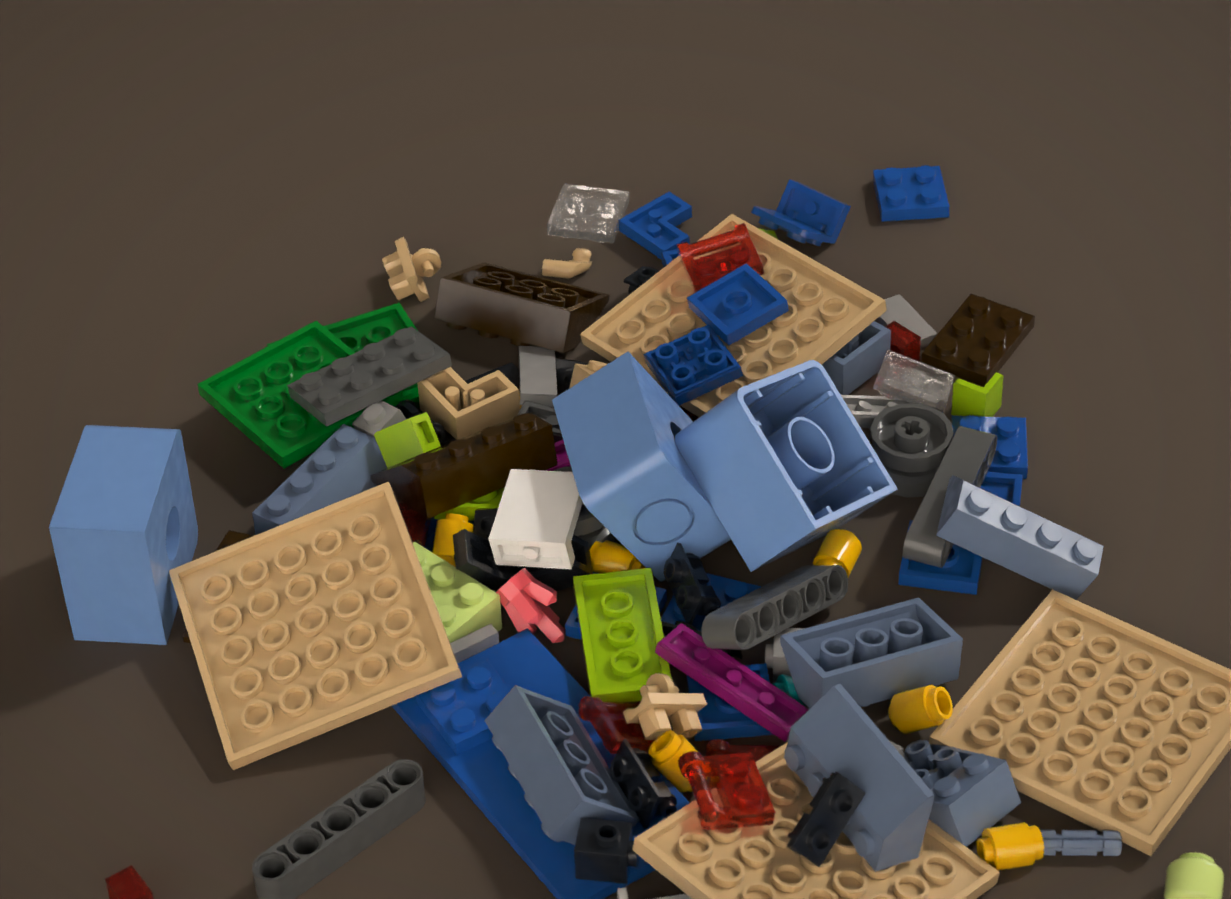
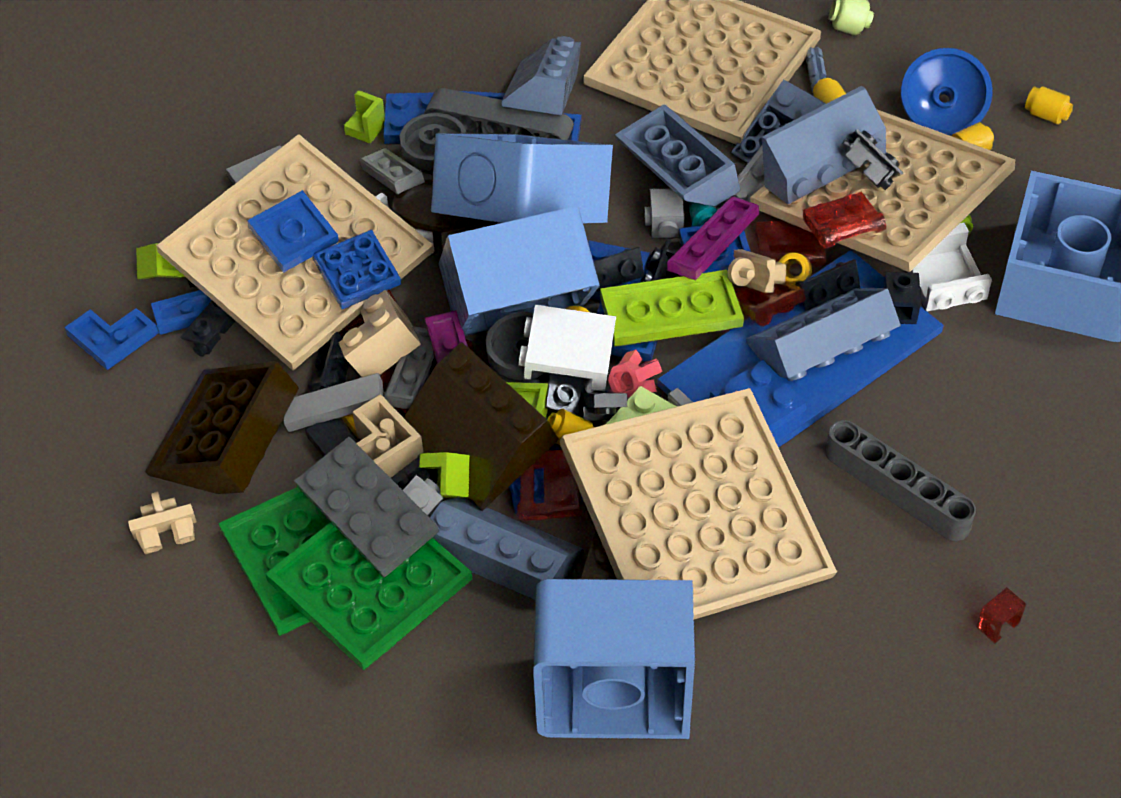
camera: 95 degrees left, 10 degrees up
(568, 269) = (161, 399): tan arm -> none
(588, 213) = (83, 391): clear plate -> none
(715, 266) = (235, 245): clear red plate -> none
(774, 607) = (655, 213): dark grey beam -> none
(805, 215) = (118, 227): blue bracket -> none
(910, 193) = (78, 169): blue plate -> none
(913, 381) = (357, 147): clear plate -> none
(920, 708) = (720, 134): yellow brick -> none
(978, 339) = (276, 120): dark brown plate -> none

